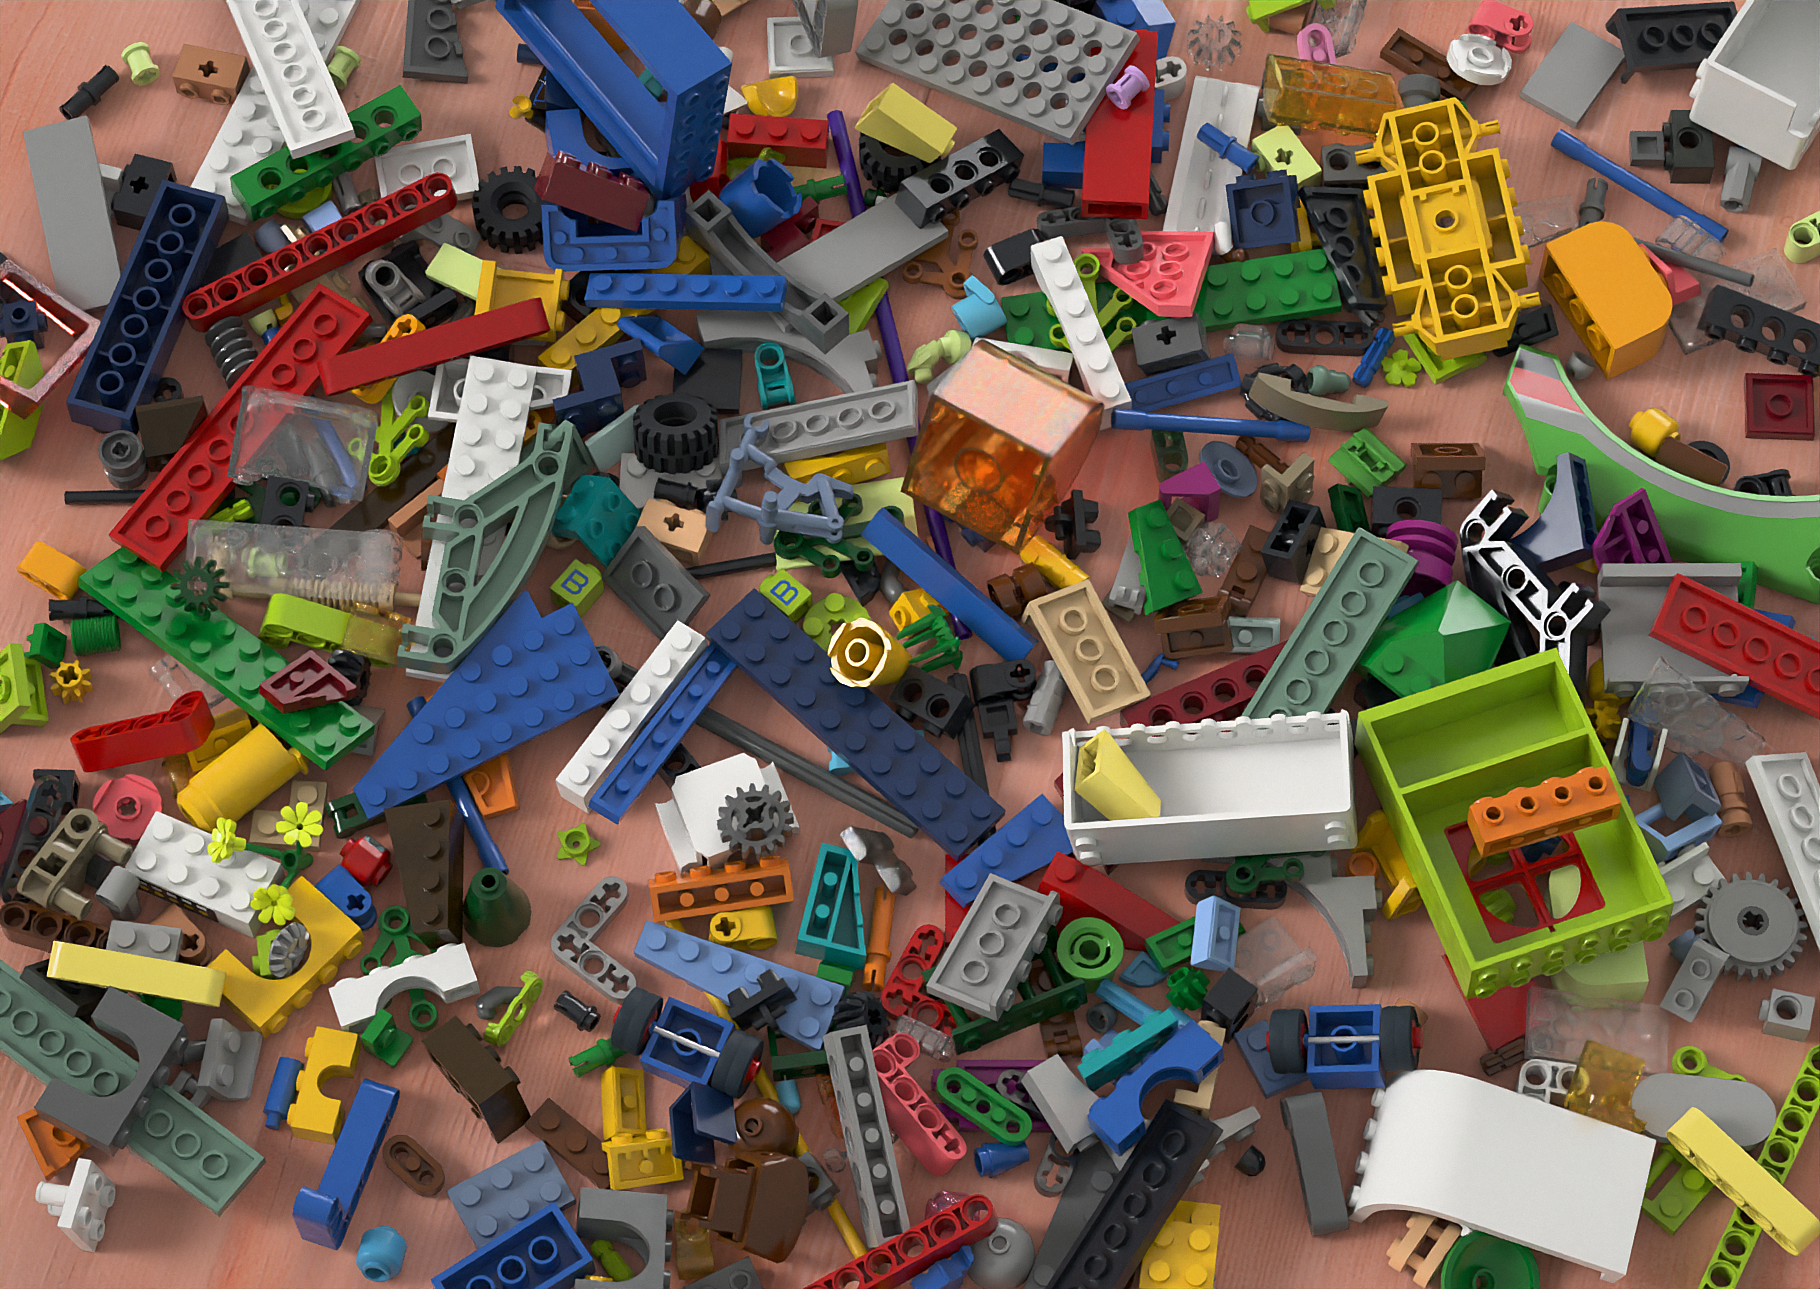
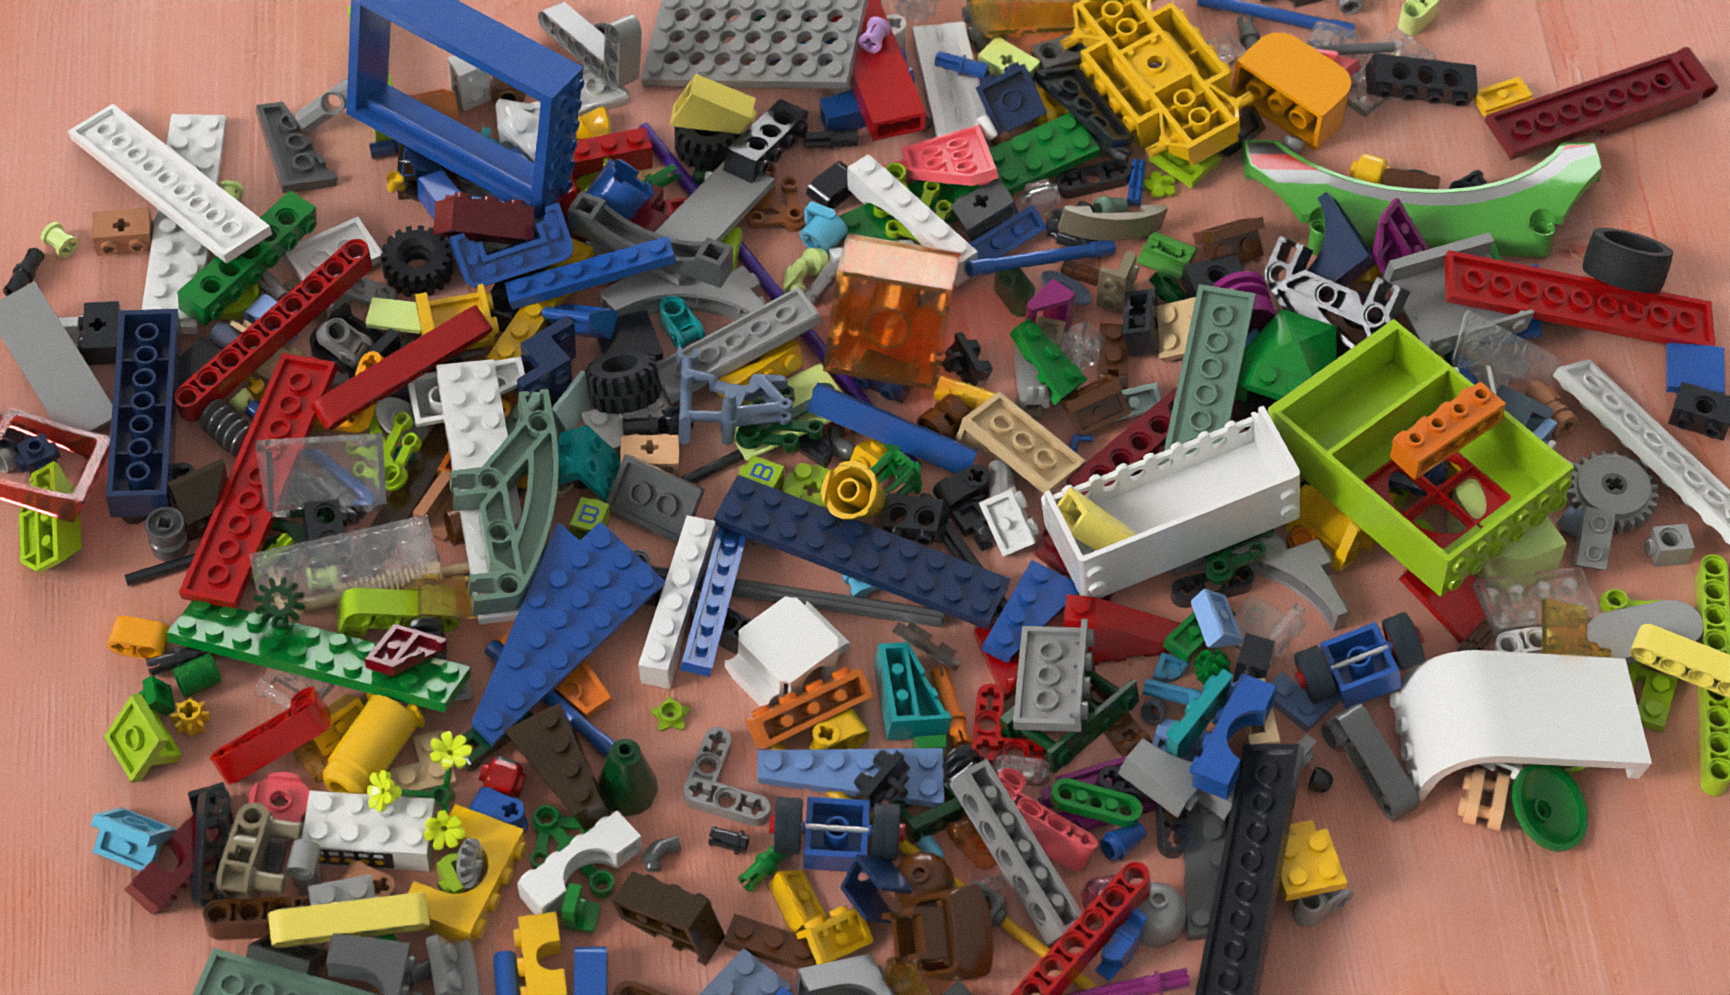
camera: 25 degrees left, 10 degrees down
(501, 1033) = (674, 873): lime piece -> none
(755, 836) = (821, 639): dark grey gear -> none
(1035, 739) = (1009, 521): none -> white bracket
(1090, 951) = (1127, 658): bright green piece -> none
(1119, 231) = (910, 146): dark grey beam -> none
(1779, 406) = (1449, 133): dark red tile -> none

